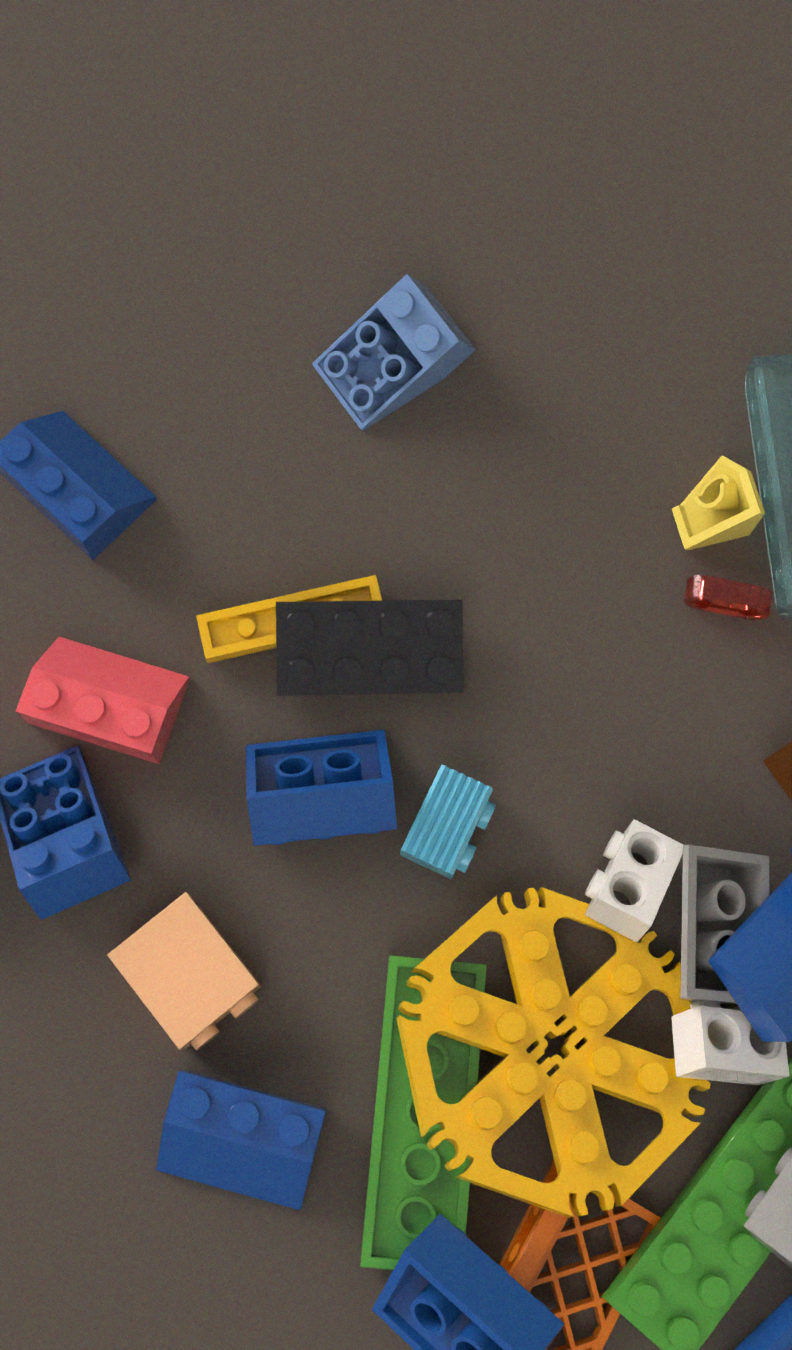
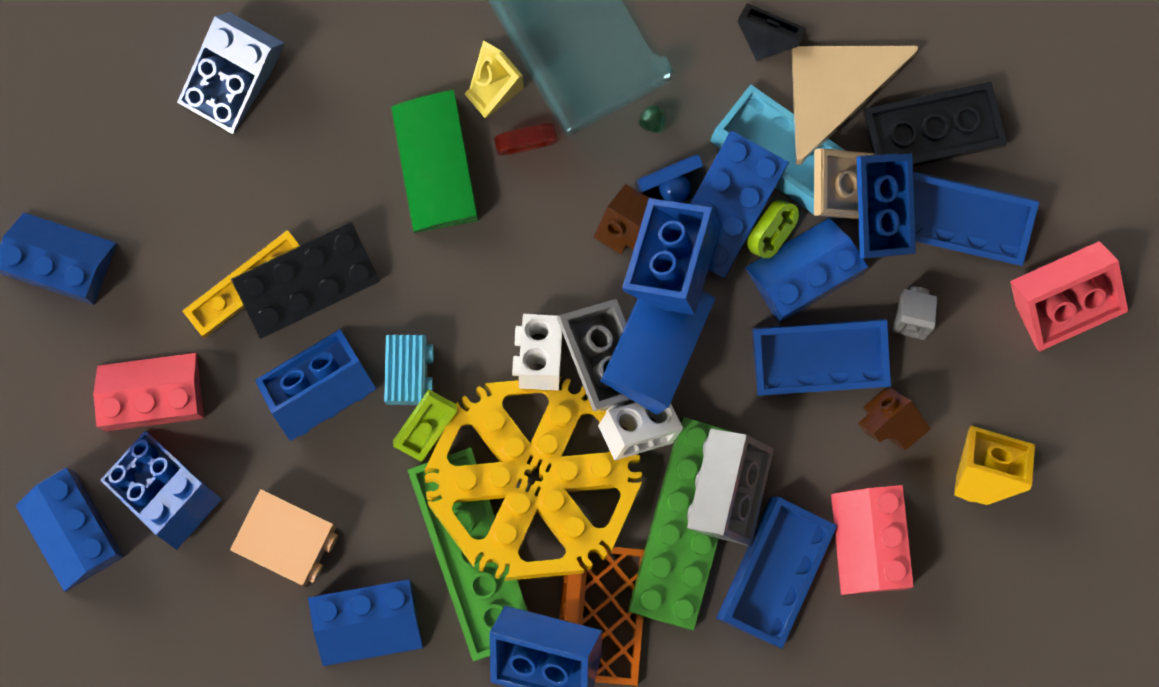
camera: 20 degrees left, 5 degrees up
(439, 907) = (425, 425): none -> lime plate
(598, 575) = (434, 162): none -> green slope

